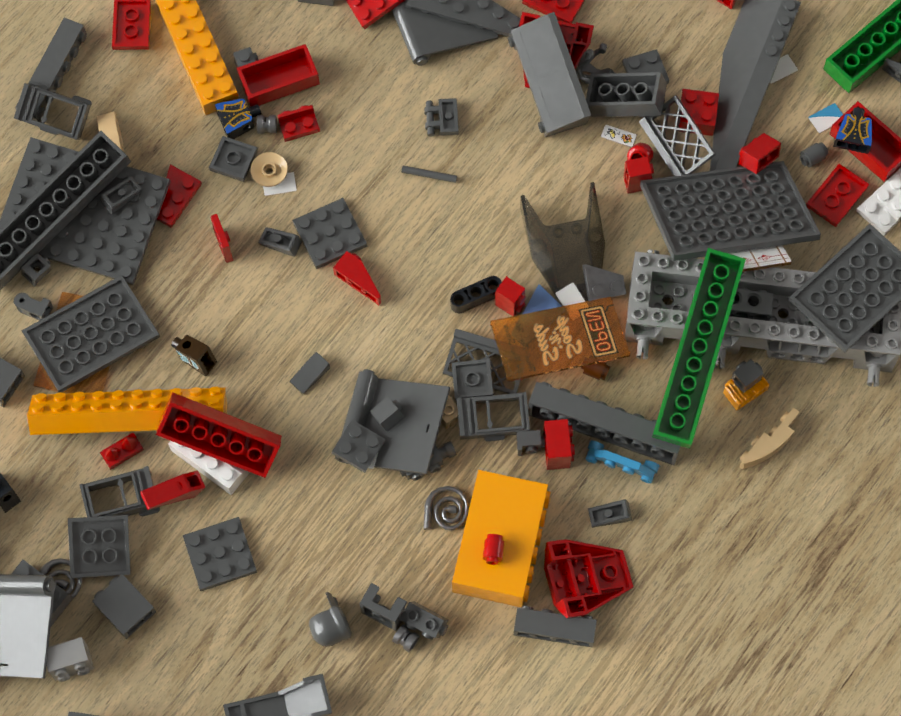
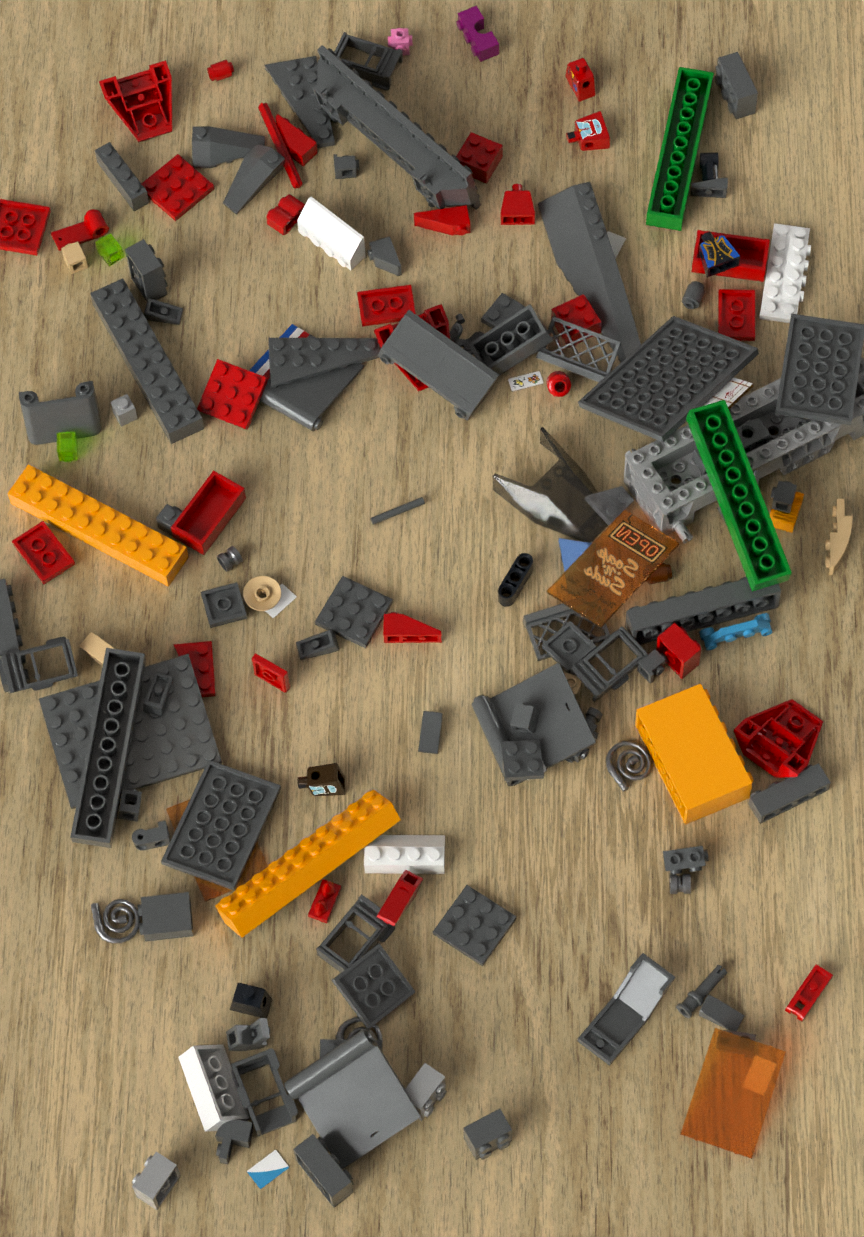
camera: 35 degrees left, 5 degrees down
(123, 605) = (431, 1020): dark grey brick -> none
(218, 435) = (404, 826): red brick -> none
(236, 117) = (198, 569): torso -> none
(298, 123) = (255, 541): red bracket -> none
(330, 625) = (614, 915): dark grey piece -> none
(380, 613) = (645, 877): dark grey panel -> none
(447, 117) = (375, 454): dark grey plate -> none
(493, 549) = (701, 760): red brick -> none
(510, 297) = (547, 561): red brick -> none
(569, 295) = (591, 530): white sticker -> none
(610, 513) = (759, 678): dark grey slope -> none
(635, 171) = (567, 399): red brick -> none
(759, 153) = (651, 320): red brick -> none
(825, 118) = (678, 261): sticker -> none

